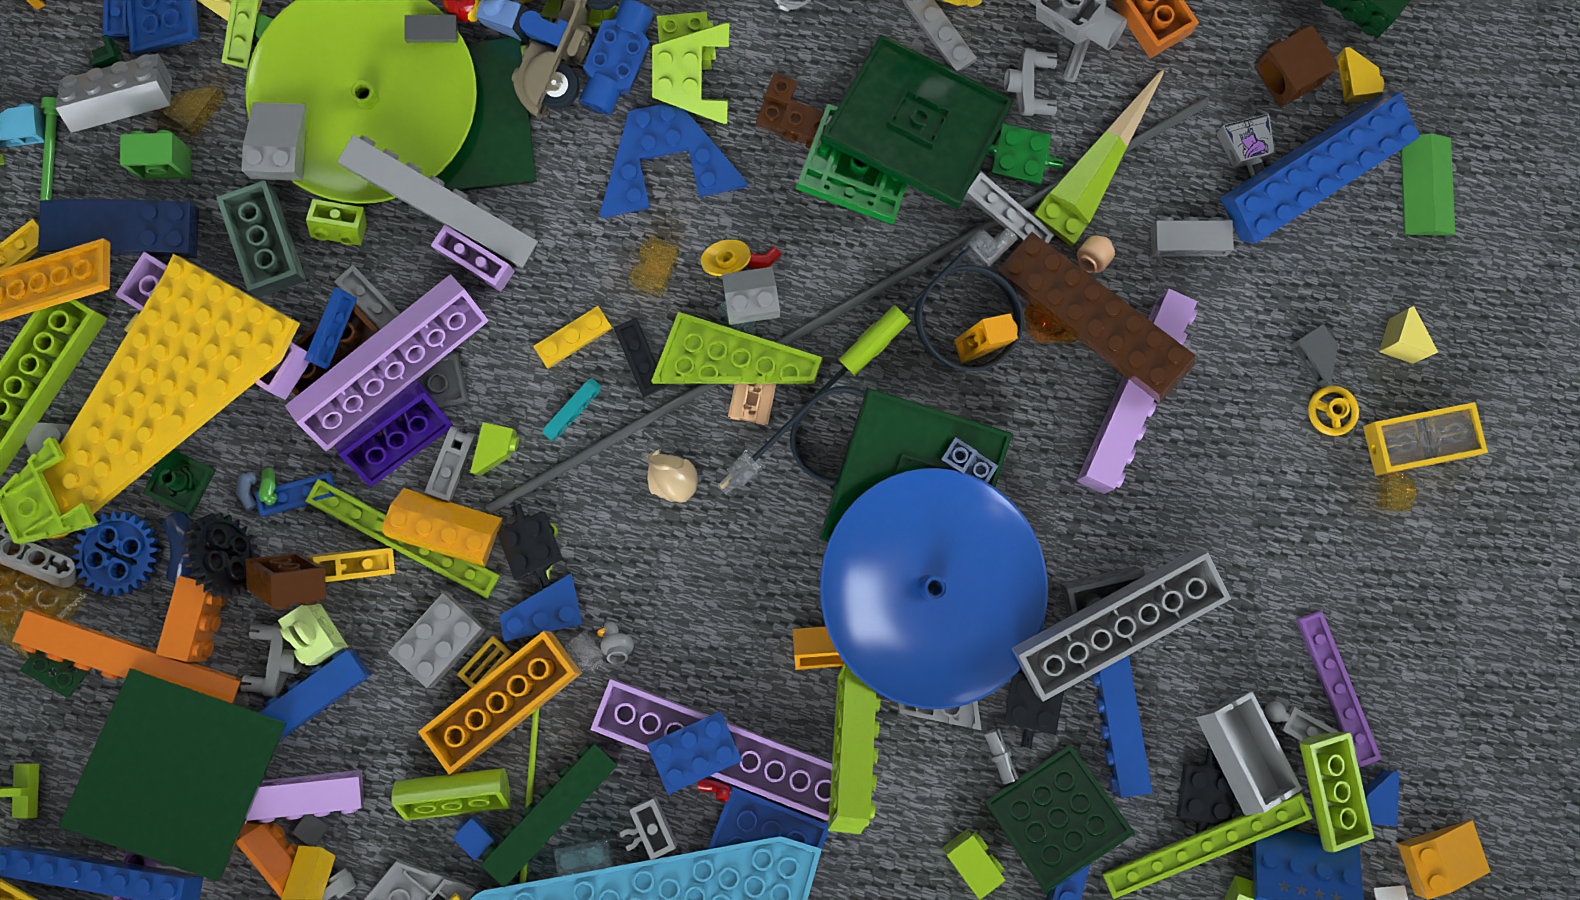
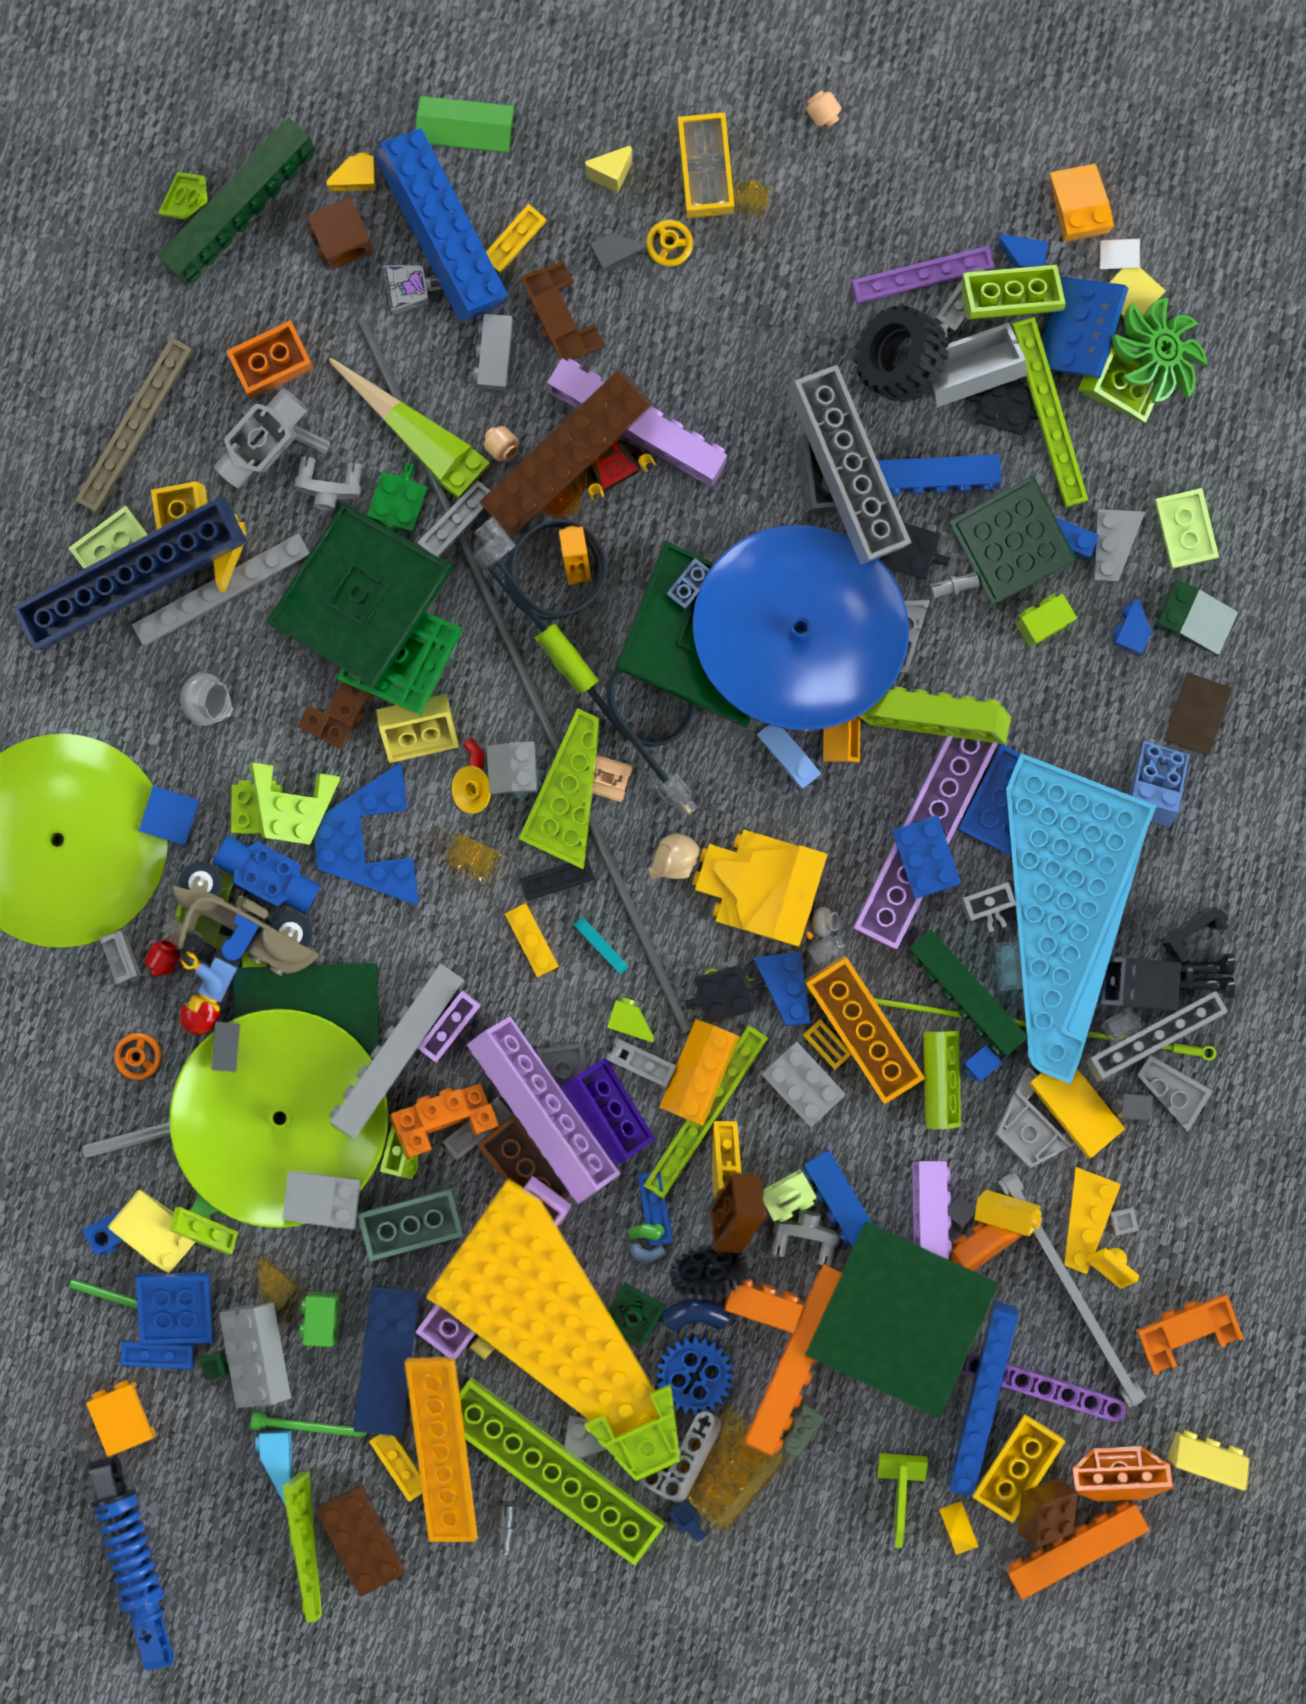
camera: 80 degrees left, 5 degrees up
(330, 328) = (509, 1157): blue tile -> none
(378, 254) = (441, 1112): none -> orange bracket
(650, 575) = (762, 885): none -> yellow panel
(721, 788) = (960, 837): red arm -> none
(782, 206) = (413, 735): none -> light yellow slope
(793, 592) = (789, 755): none -> light blue slope
(1085, 373) = (615, 467): none -> torso
(1240, 693) = (924, 360): none -> black tyre
(1265, 281) = (550, 309): none -> reddish brown bracket
(1315, 247) = (515, 238): none -> yellow plate
(1505, 561) = (823, 108): none -> light nougat head

